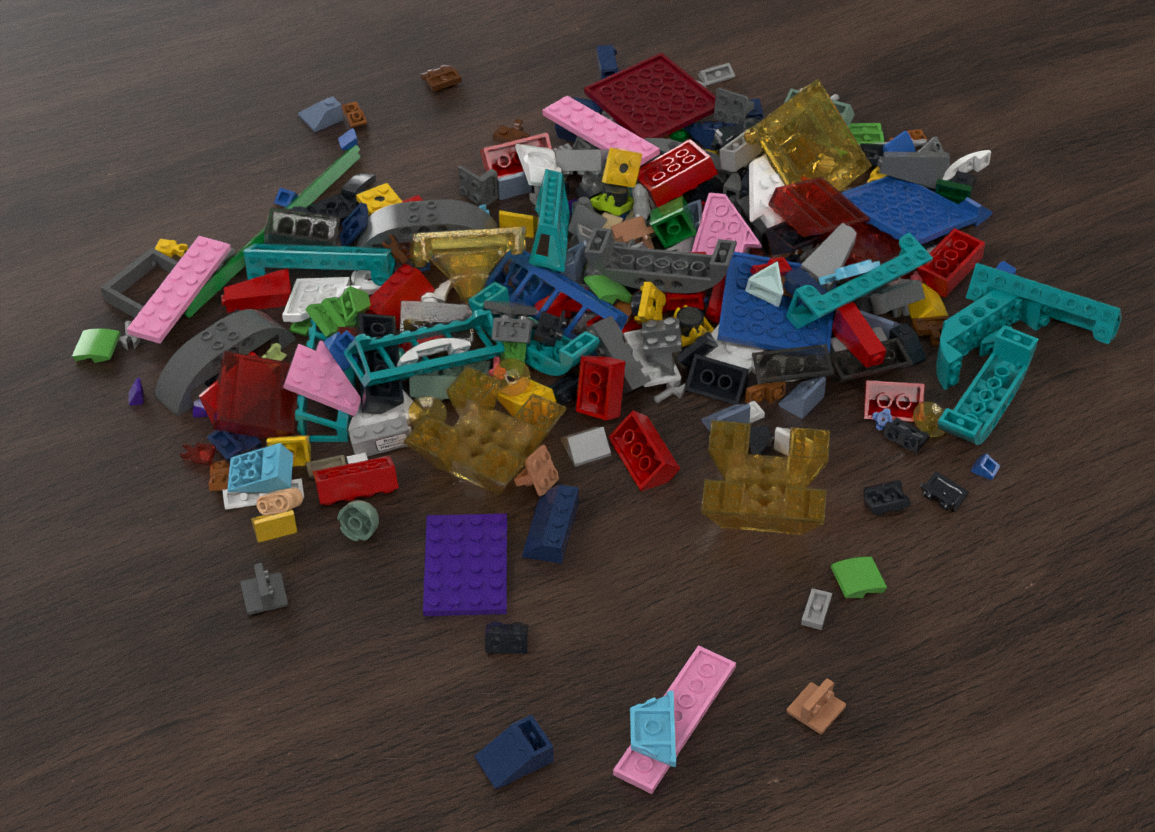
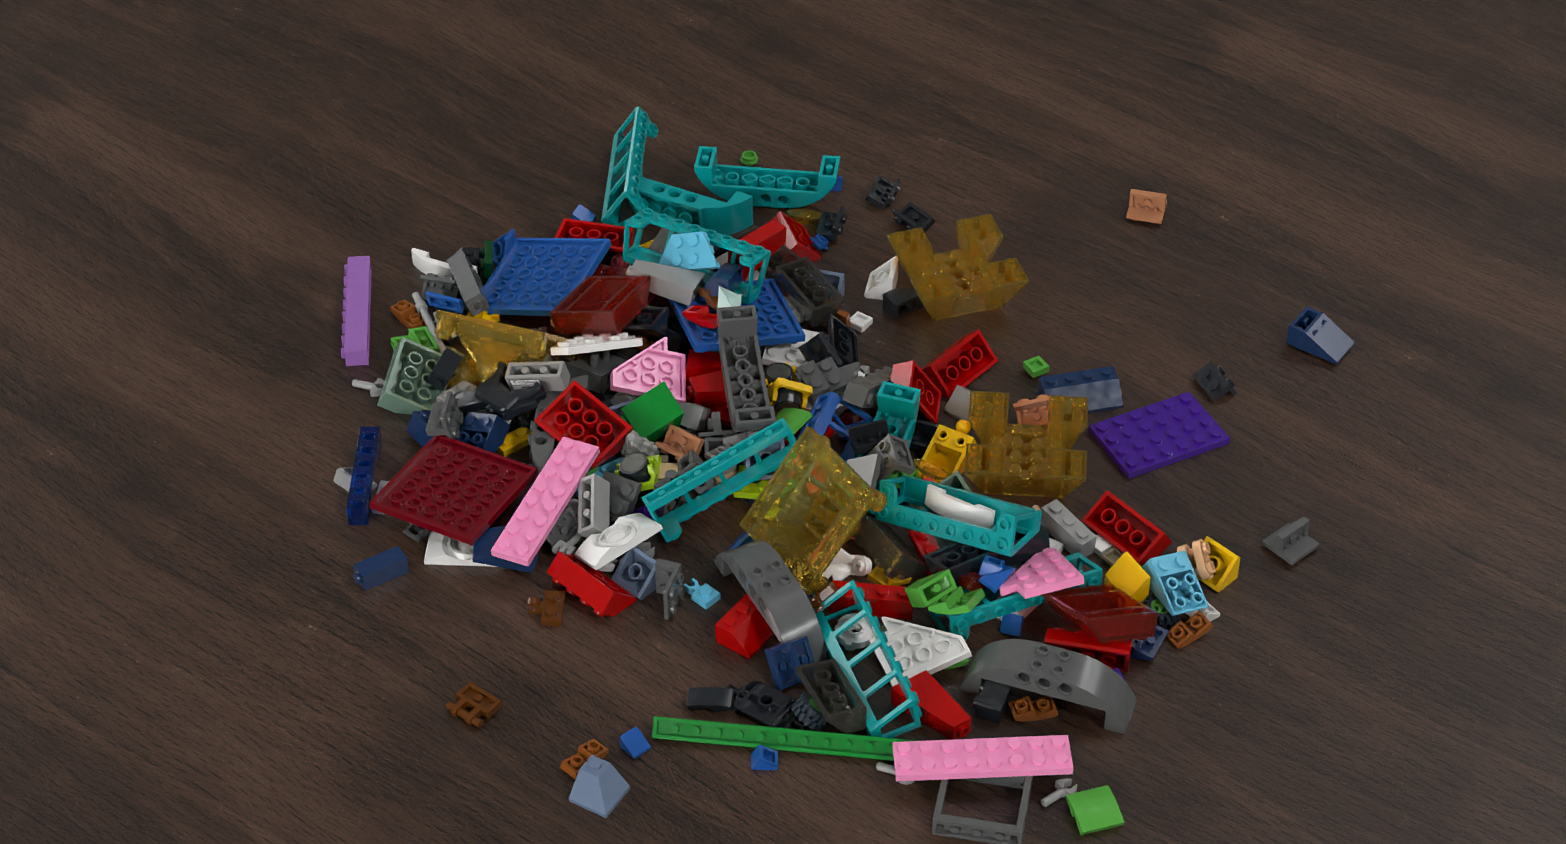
camera: 115 degrees left, 5 degrees down
(136, 393) = (1135, 742): dark purple slope -> none
(170, 247) = (908, 825): yellow plate -> none
(201, 454) = (1176, 654): clear red plate -> none
(358, 520) = (1169, 506): sand green cylinder -> none
(378, 198) = (736, 661): yellow piece -> none
(510, 219) = (697, 546): yellow slope -> none
(610, 508) = (1036, 366): none -> bright green plate
(621, 167) = (610, 454): yellow piece -> none
(654, 729) = (1239, 269): medium azure wing -> none
(693, 695) = (1215, 271): bright pink plate -> none
(734, 413) = (883, 326): sand blue slope -> none
(743, 81) = (360, 490): none -> clear blue arch
(816, 609) = (1054, 229): light grey plate -> none
(858, 577) = (1008, 216): bright green slope -> none
(927, 112) = (357, 314): none -> medium lavender brick
(1051, 414) = (749, 158): none -> bright green plate

